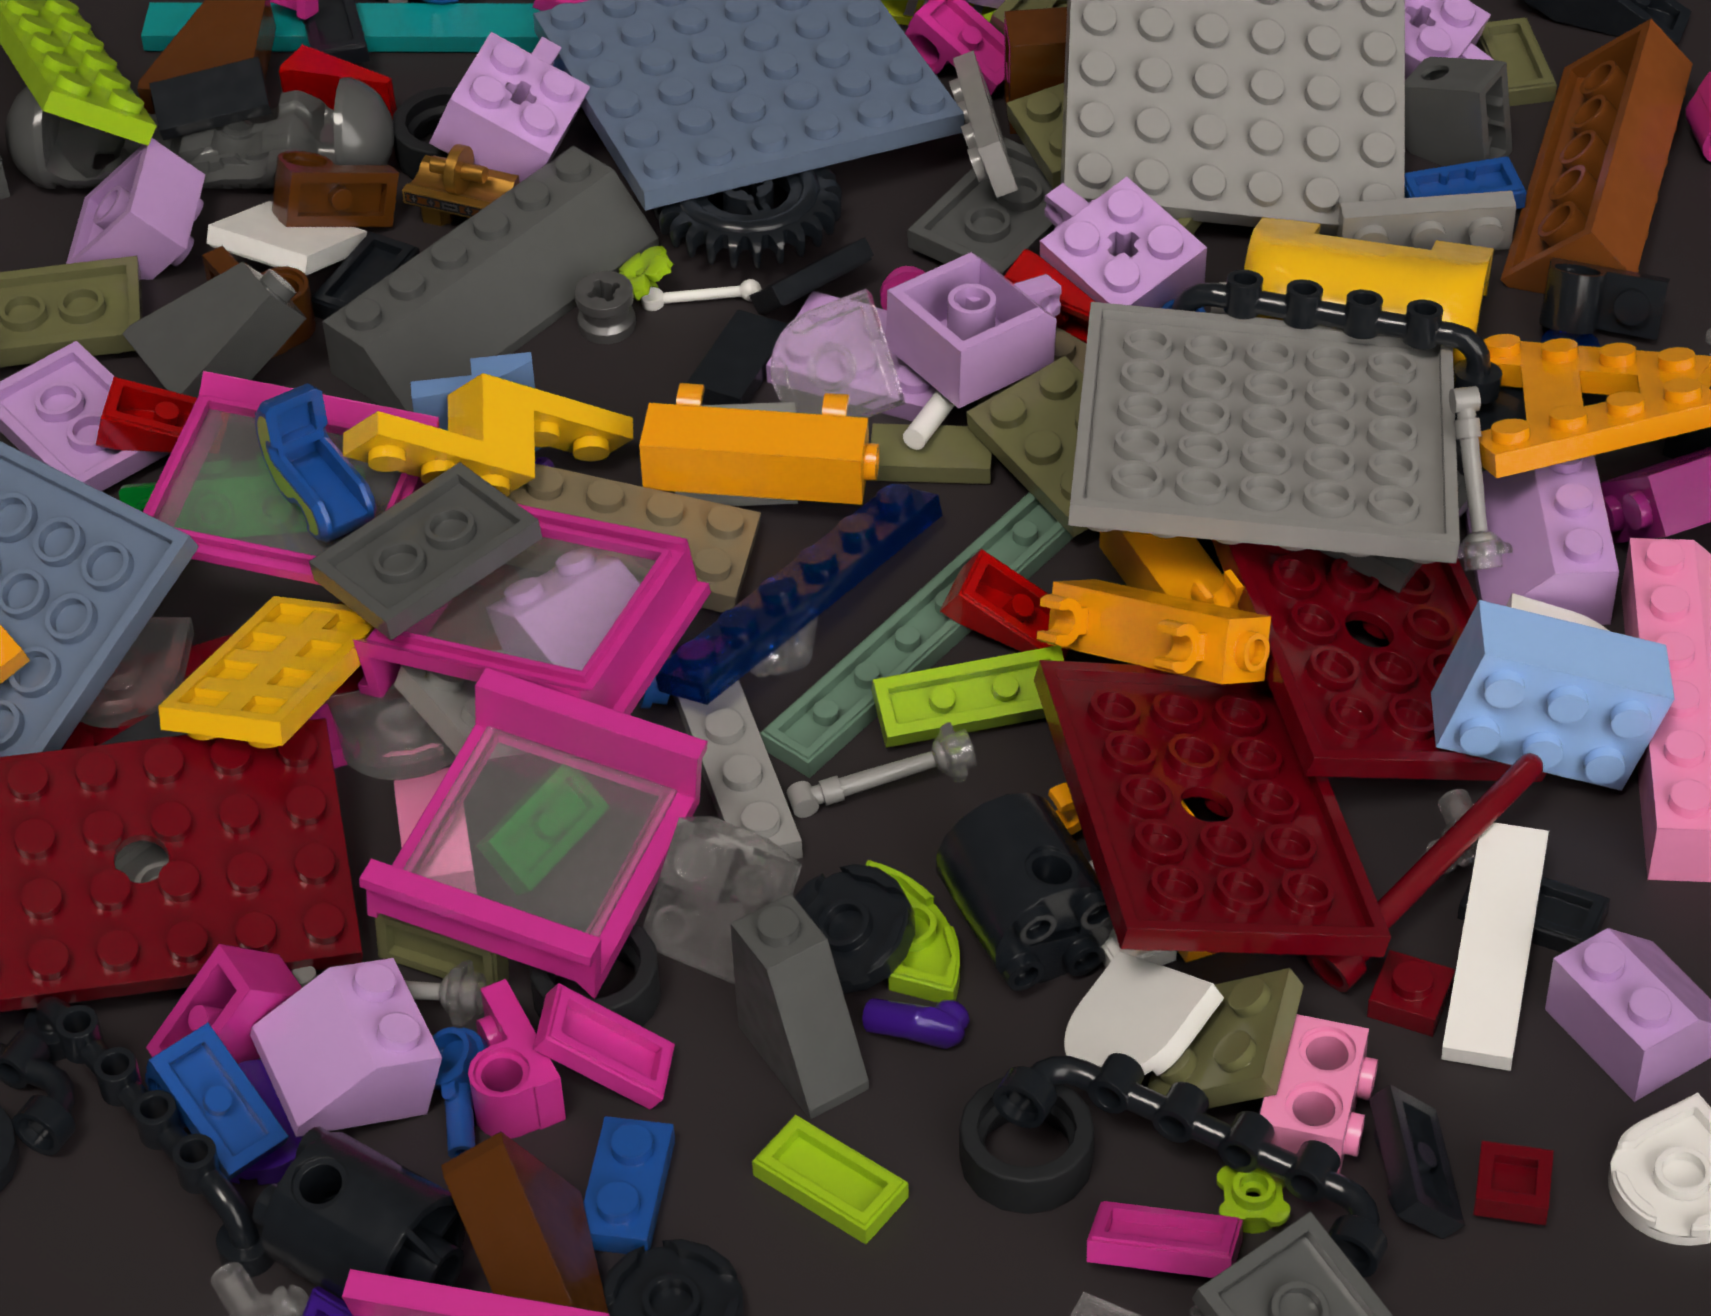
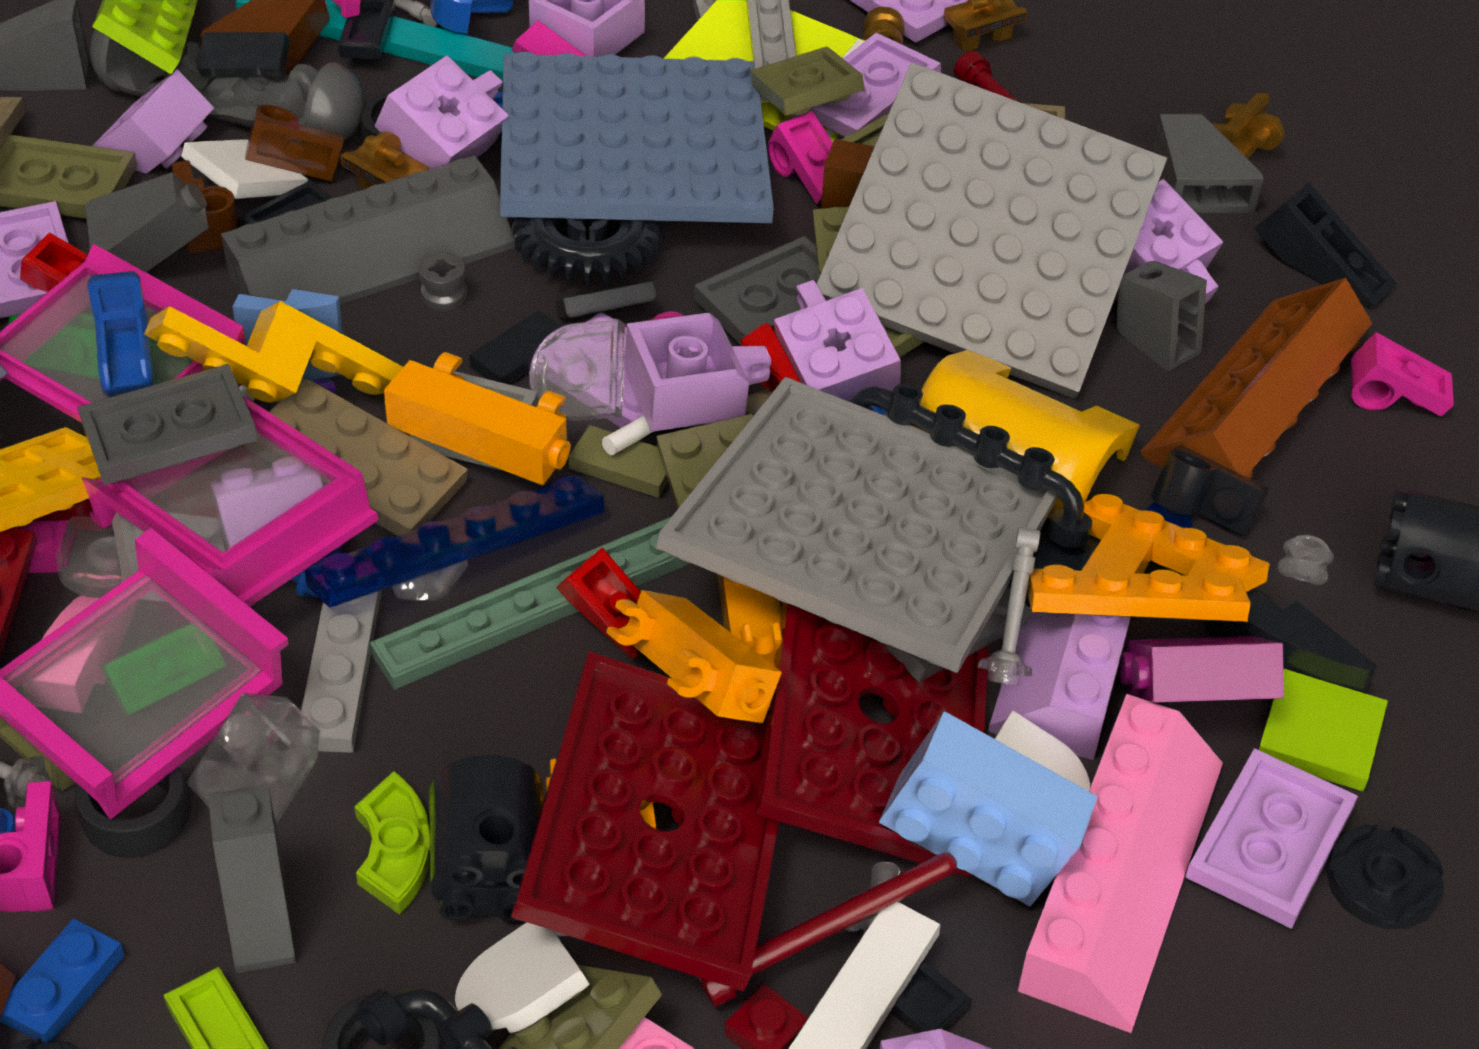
camera: 15 degrees right, 0 degrees up
(320, 74) = (333, 50): red slope -> none
(604, 1046) = (97, 861): dark pink tile -> none
(646, 269) = (485, 263): lime plant -> none
(657, 298) = (487, 285): white hinge -> none
(864, 921) = (343, 824): black tile -> none
(928, 1025) = (356, 922): dark purple arm -> none
(949, 753) = (503, 705): light grey piece -> none
(966, 694) = (530, 659): lime plate -> none
(981, 126) = (786, 222): light grey plate -> none
(1419, 221) = (1084, 387): light grey plate -> none
(1467, 178) = (1141, 372): blue plate -> none
(1527, 69) = (1238, 284): olive tile -> none

